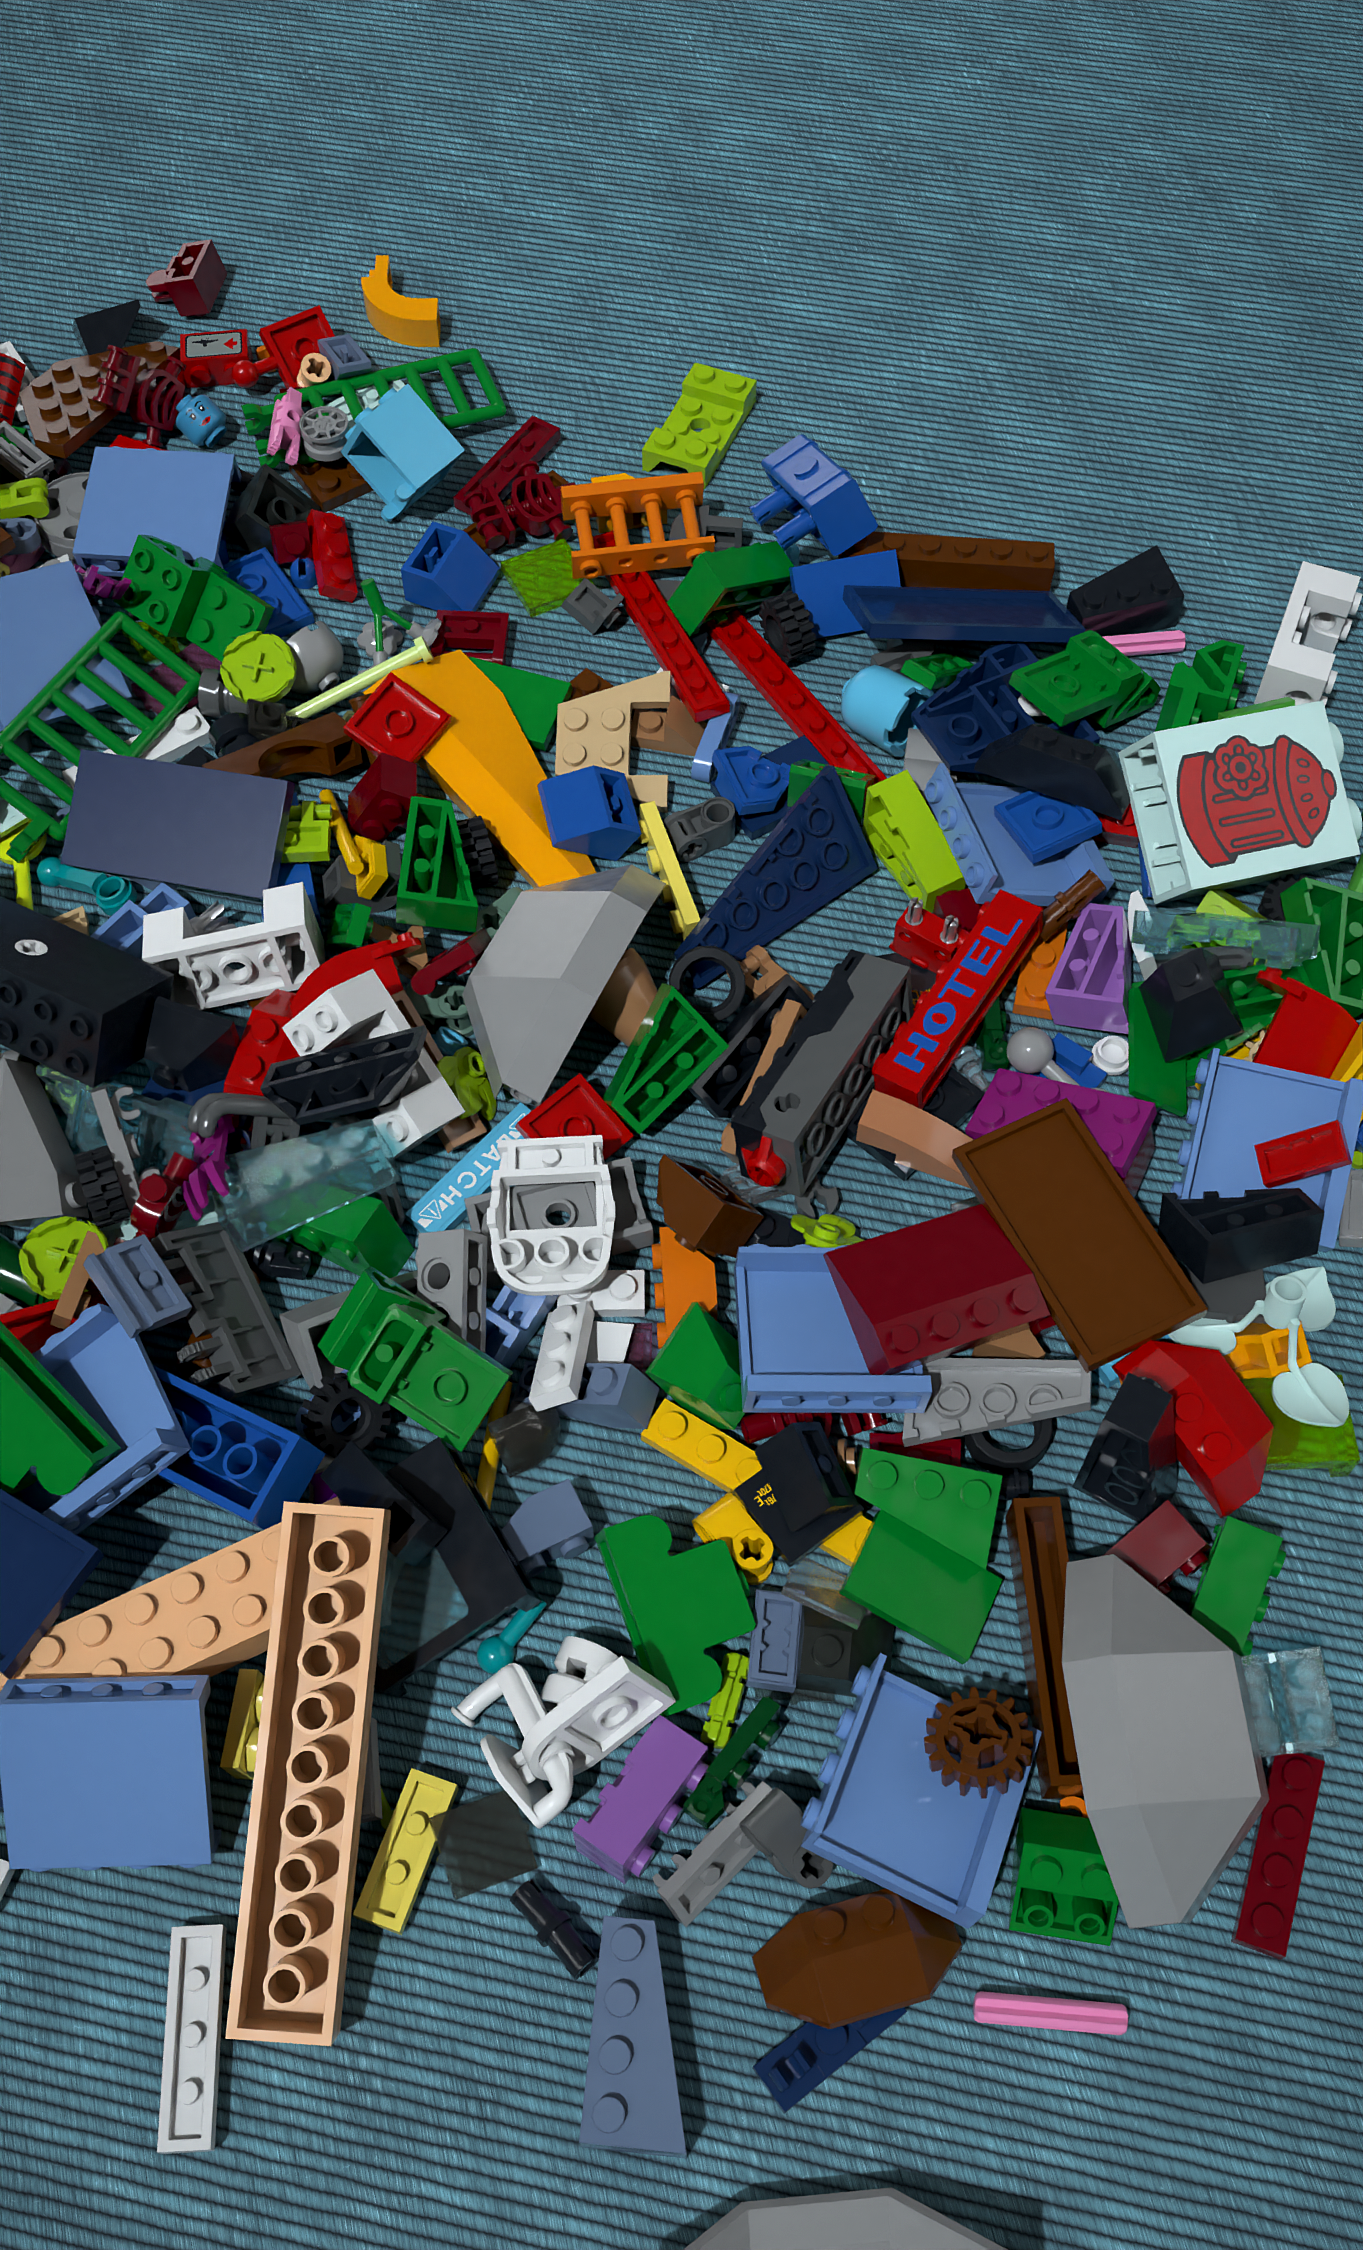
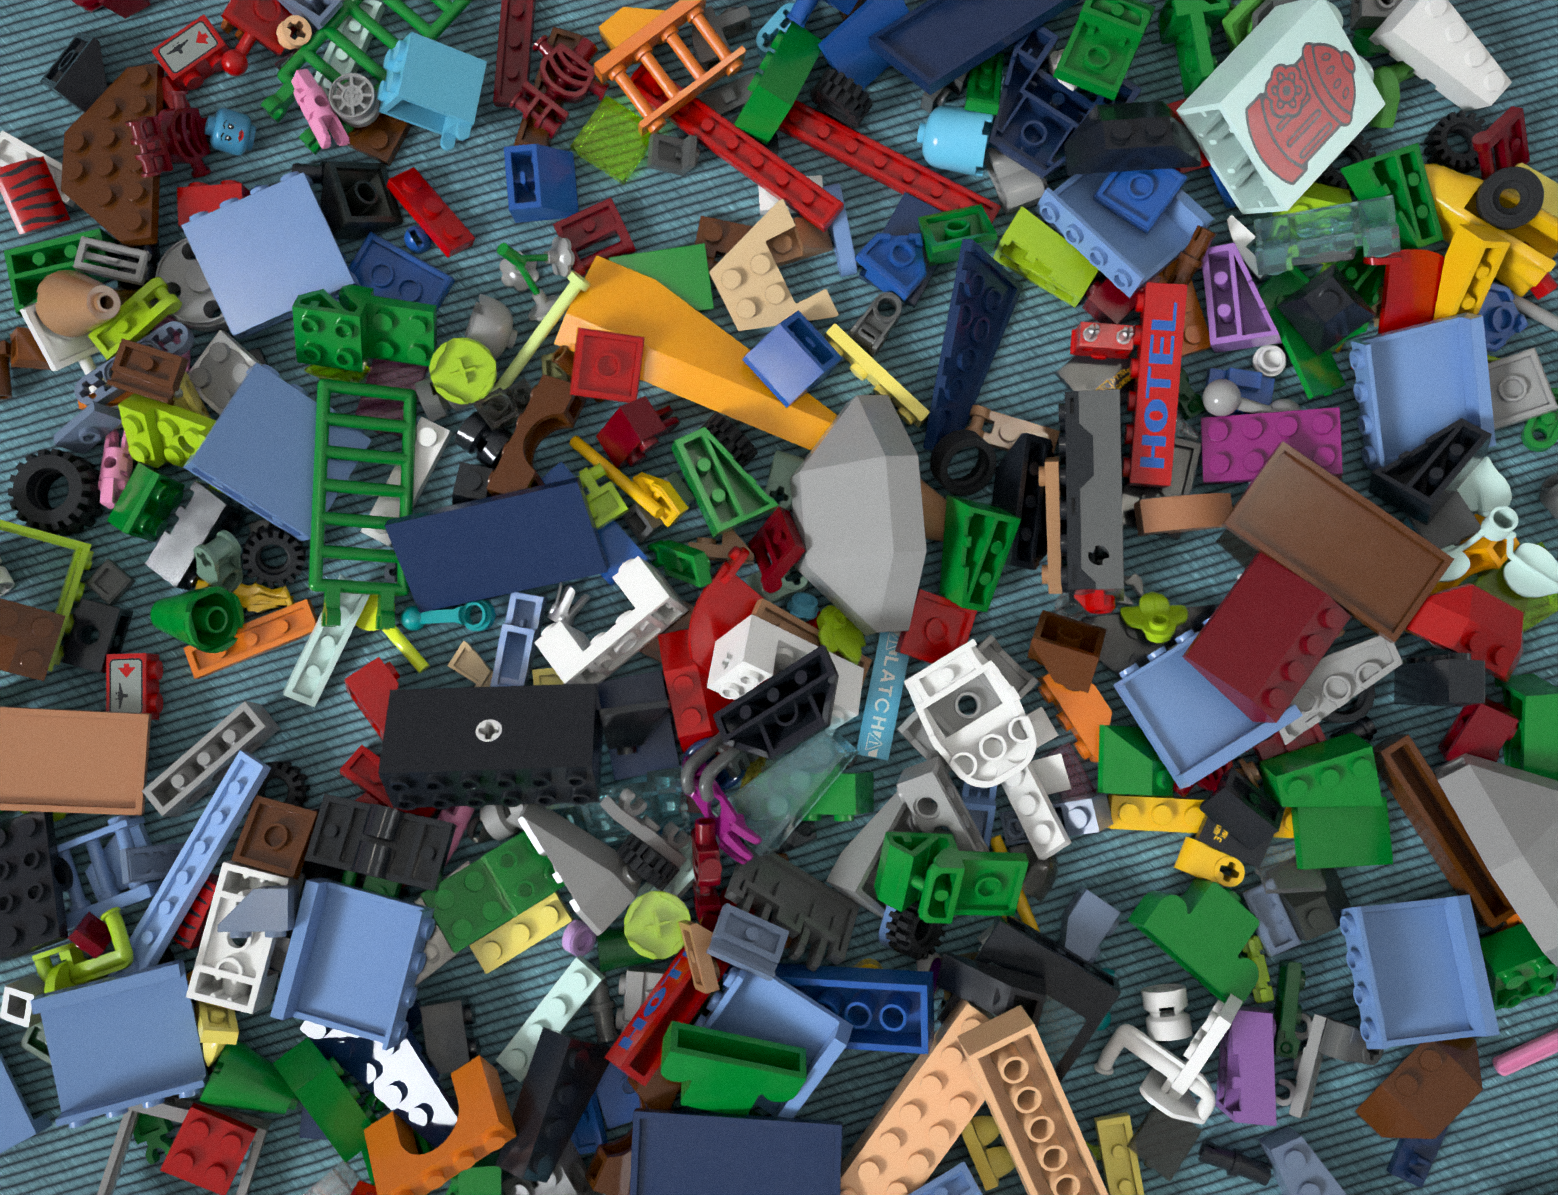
camera: 25 degrees left, 25 degrees up
(101, 584) = (284, 364): magenta piece -> none
(290, 541) = (392, 219): dark red plate -> none
(995, 1755) = (1442, 943): reddish brown gear -> none
(1303, 1154) = (1452, 389): red plate -> none

